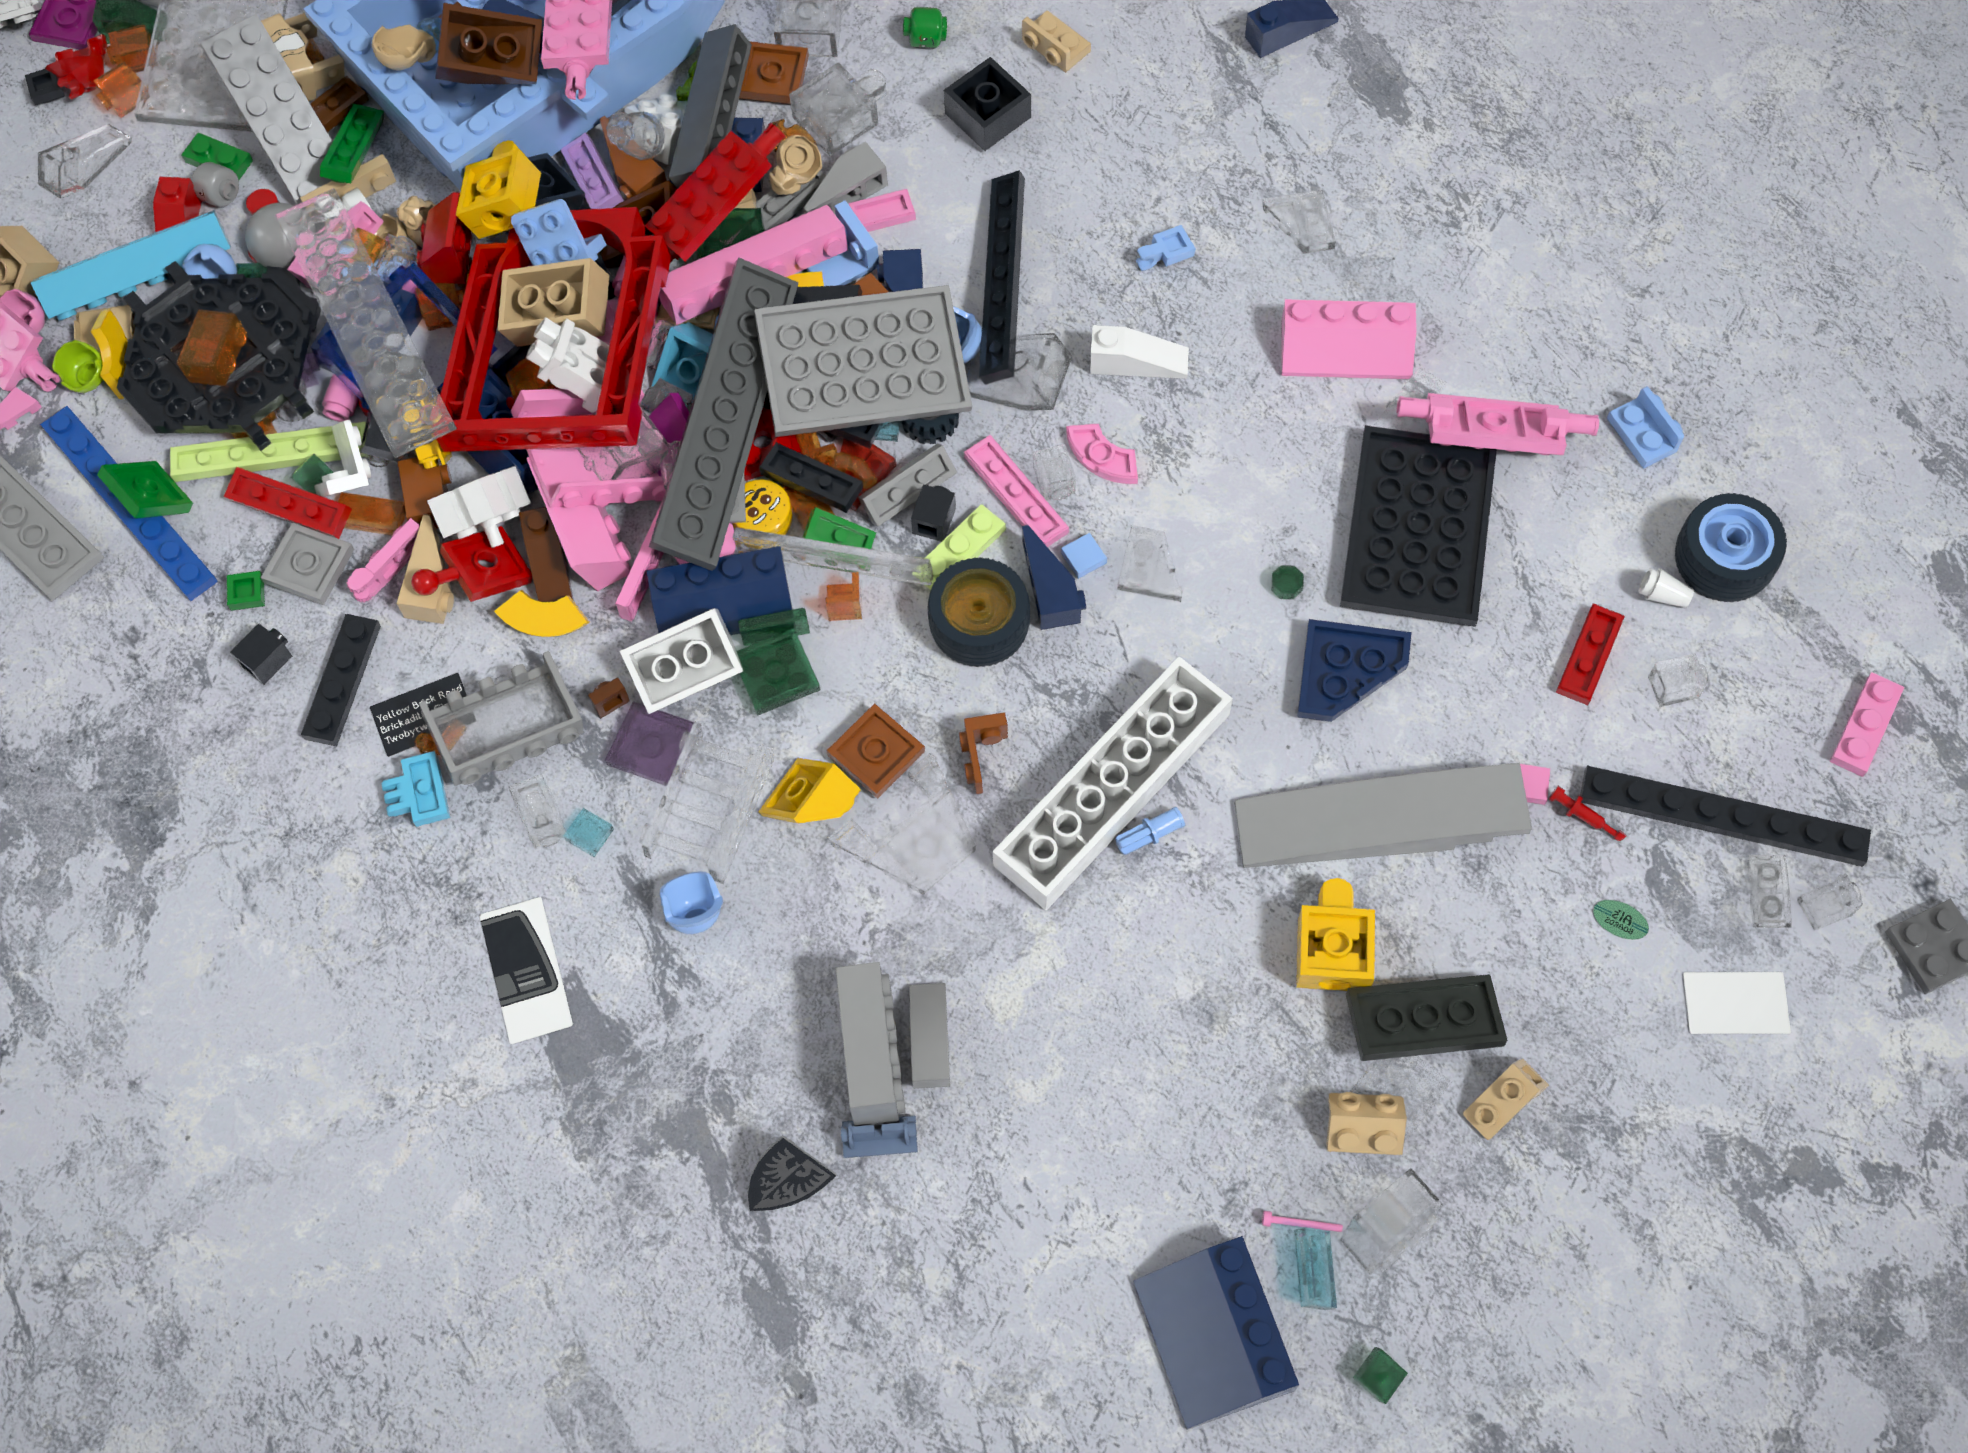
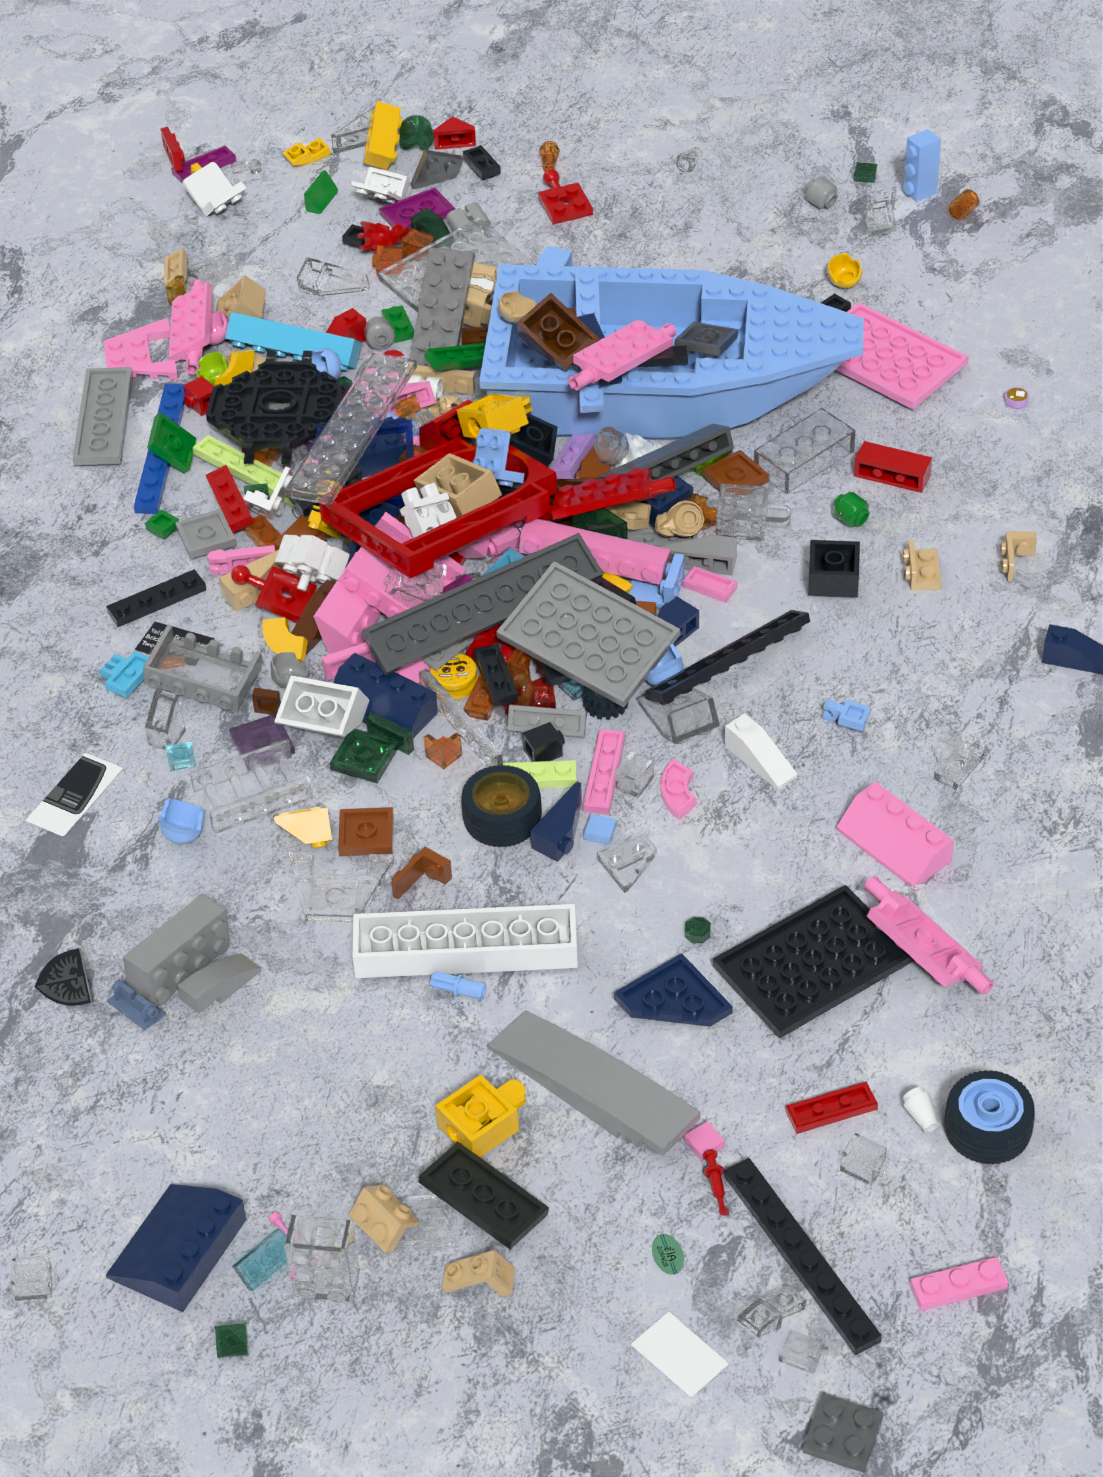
camera: 45 degrees right, 20 degrees down
(102, 408) = (198, 394): none -> red brick
(212, 347) = (273, 395): clear orange brick -> none
(262, 653) = (134, 556): black brick -> none
(592, 645) = (285, 665): none -> light grey hair
(834, 529) = (477, 710): green plate -> none
(1647, 428) = (1024, 1021): light blue bracket -> none

